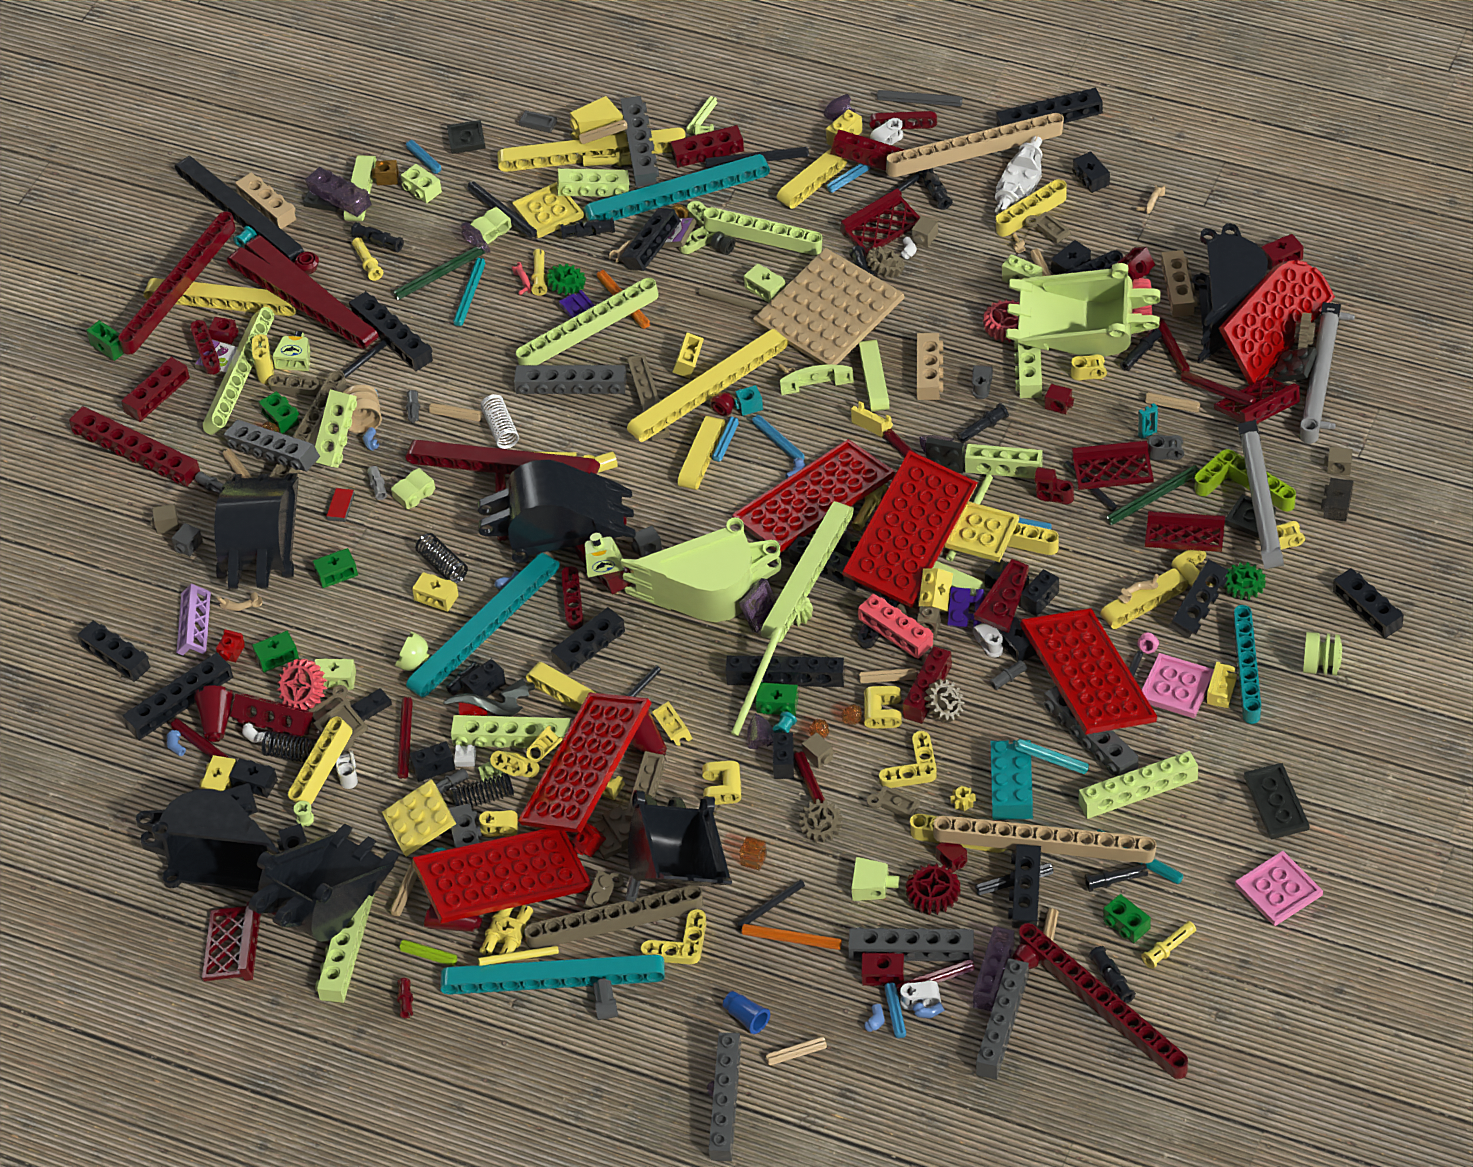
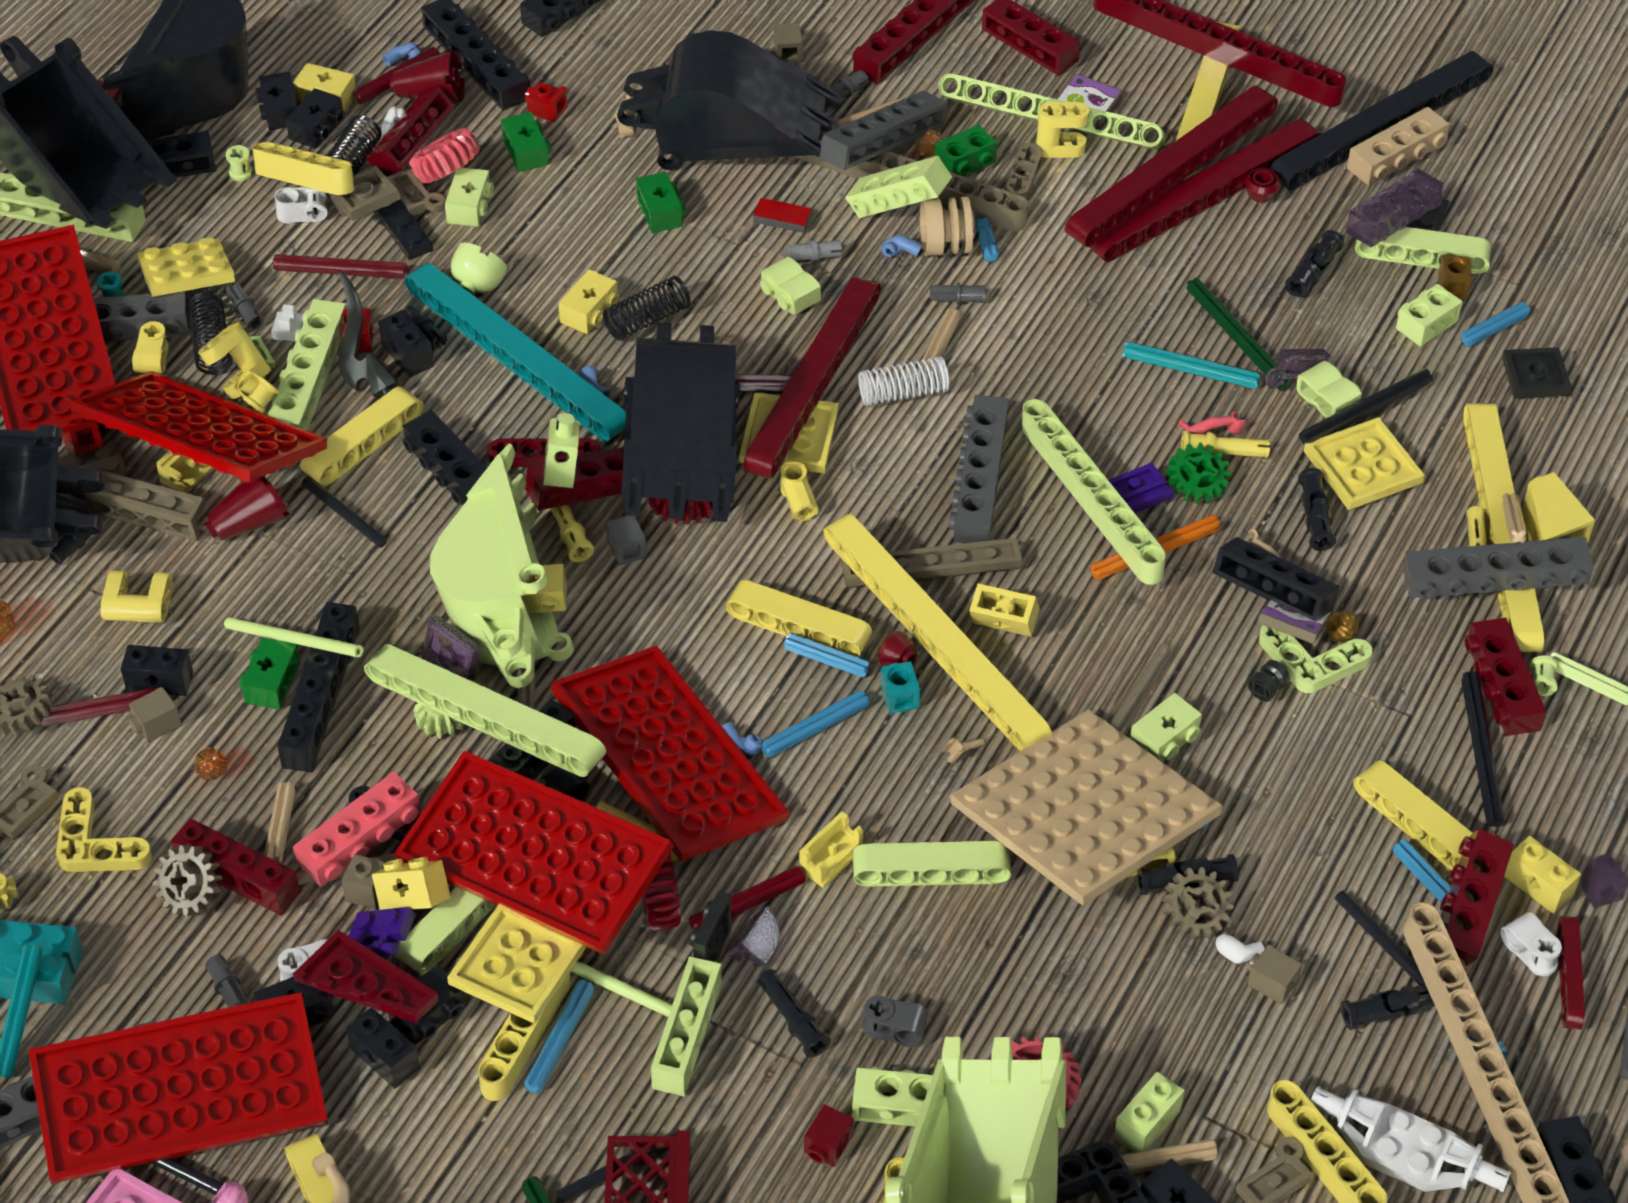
camera: 90 degrees right, 0 degrees up
(188, 617) = (598, 61): lavender fence -> none
(204, 347) = (1065, 84): dark red beam -> none
(223, 330) = (1135, 99): dark red brick -> none
(245, 236) = (1322, 122): teal bush -> none
(293, 353) = (1083, 170): yellowish green torso -> none
(363, 359) = (1067, 247): black bar -> none
(369, 263) = (1259, 254): light yellow pin -> none
(401, 339) = (1111, 271): black brick -> none
(432, 761) = (280, 283): black brick -> none
(538, 121) = (1578, 464): dark grey tile -> none
(592, 182) = (1415, 475): yellowish green brick -> none
(672, 723) = (262, 546): light yellow hinge -> none
(678, 189) = (1403, 634): teal beam -> none
(759, 732) = (215, 650): clear purple brick -> none
(763, 231) = (1280, 742): yellowish green beam -> none
(786, 721) = (219, 679): teal bush -> none
(816, 374) = (933, 753): yellowish green slope -> none
(819, 726) = (196, 721): clear orange piece -> none
(870, 214) = (1329, 902): dark red fence -> none
(874, 699) = (227, 794): light yellow connector -> none
(929, 367) = (928, 932): tan brick -> none
(1019, 245) = (1232, 1128): tan hand -> none
(1051, 488) = (616, 1094): dark red piece -> none

